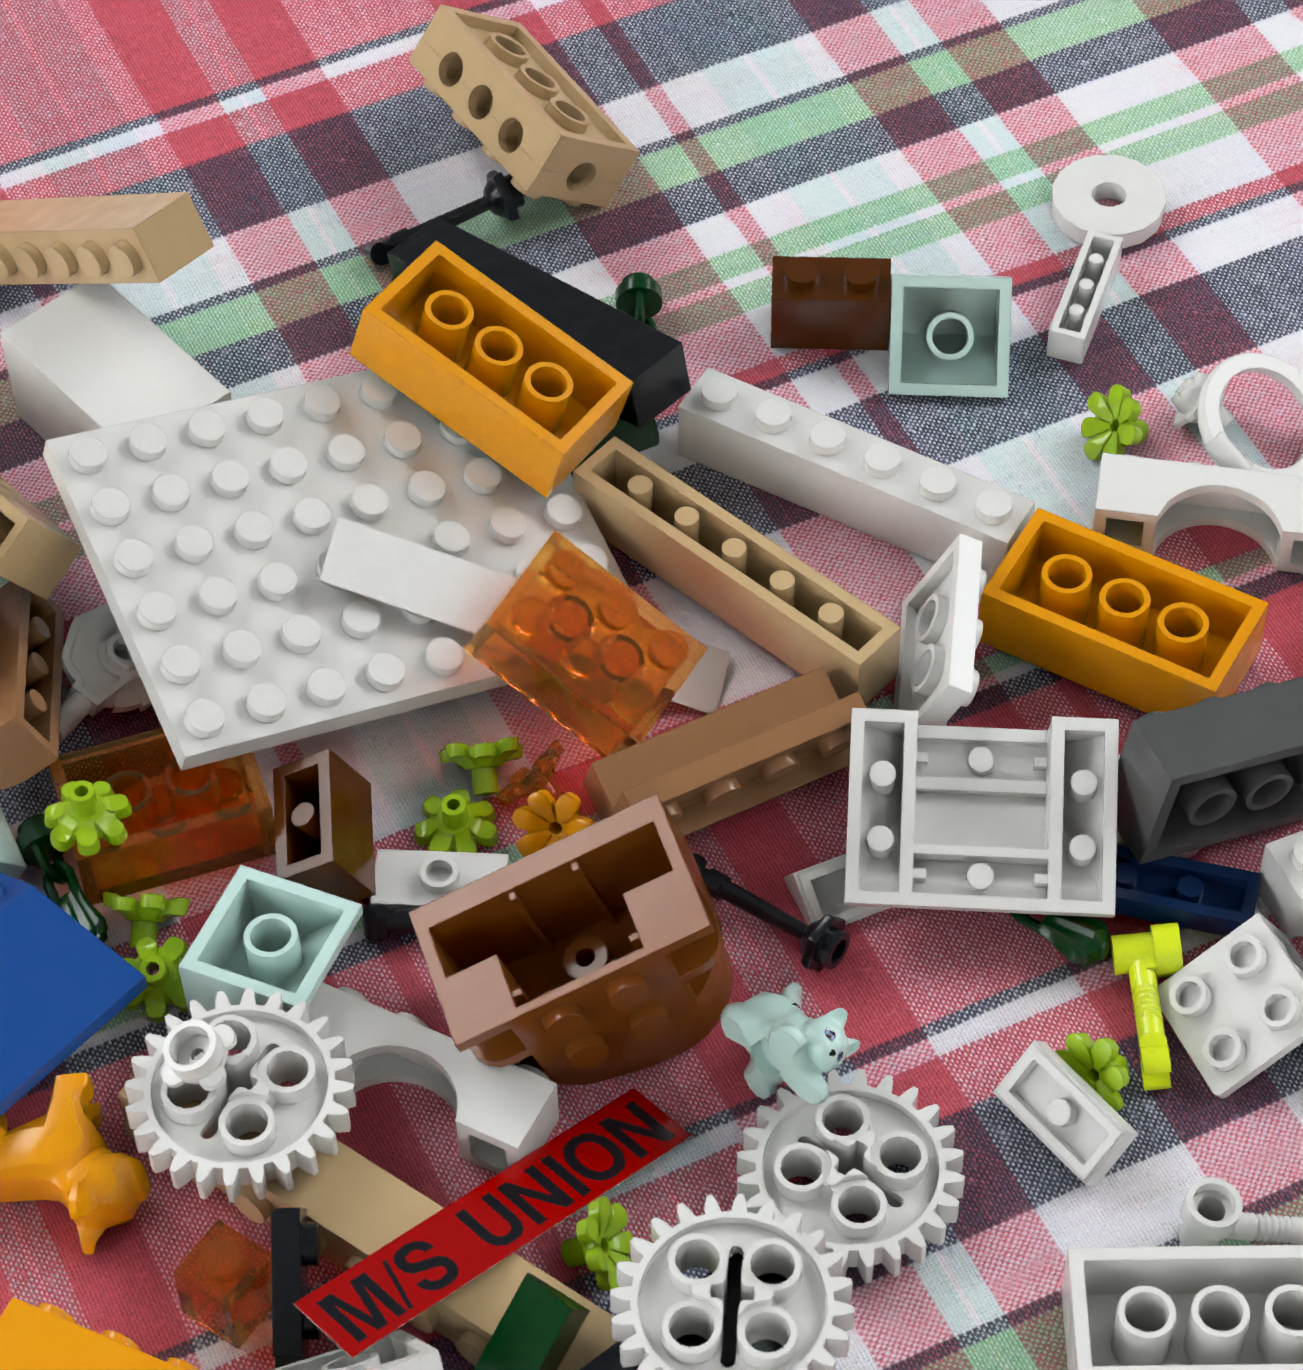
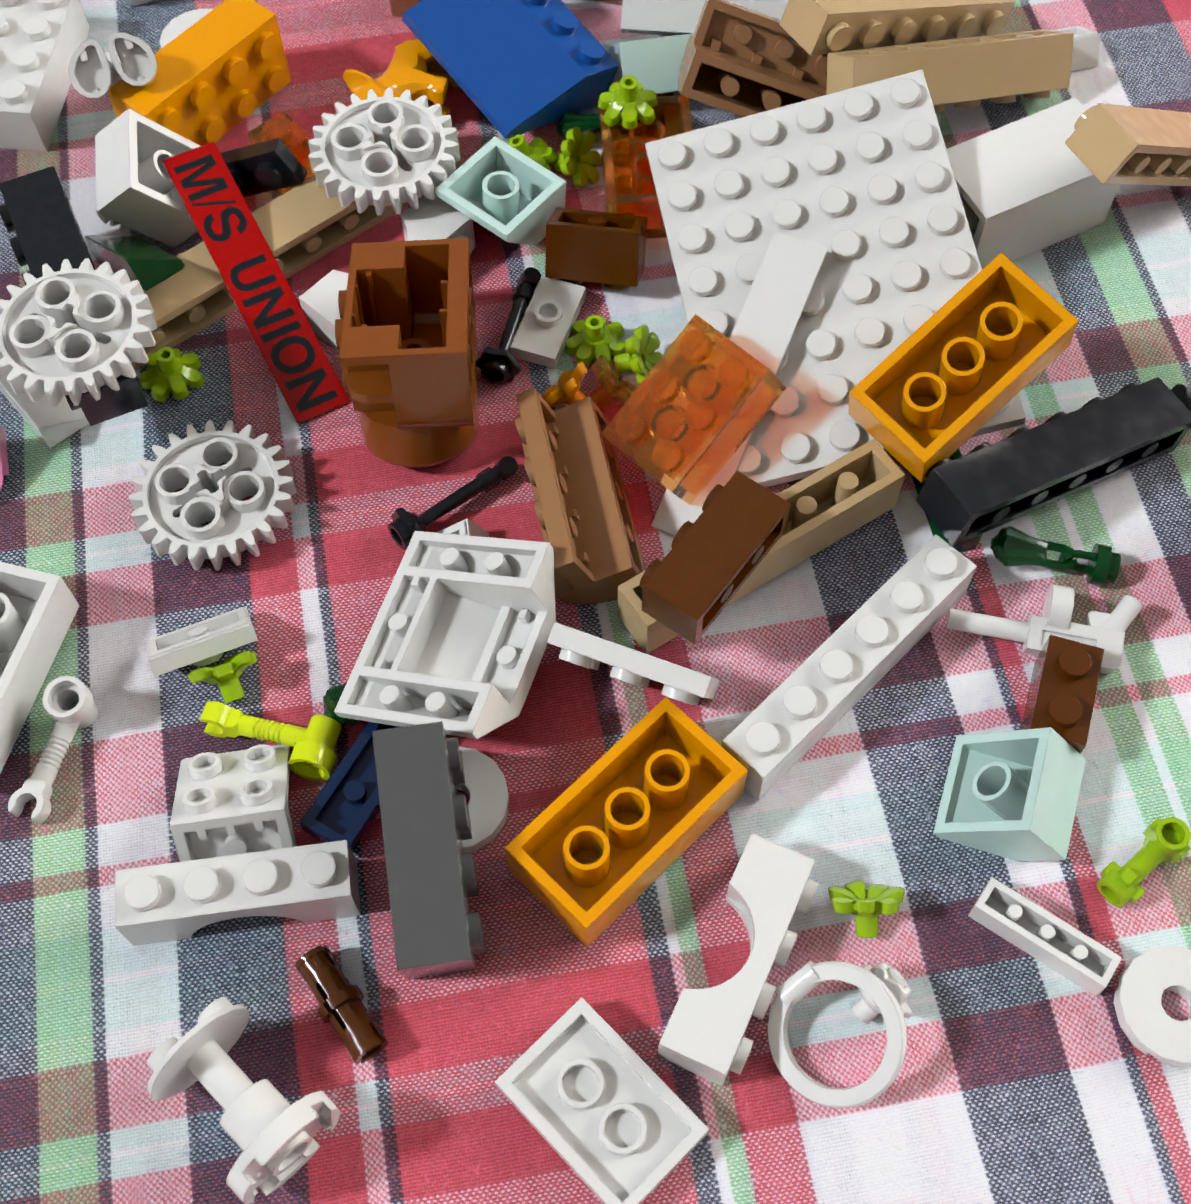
camera: 105 degrees right, 10 degrees up
(189, 1040) = (395, 106): white plate -> none
(600, 1242) = (225, 346): lime plant -> none
(731, 311) = (1102, 631): none -> white piece
(787, 1043) = (325, 467): light aqua animal -> none
(805, 561) = (713, 556): none -> reddish brown brick
(950, 222) = (1163, 842): none -> lime bar

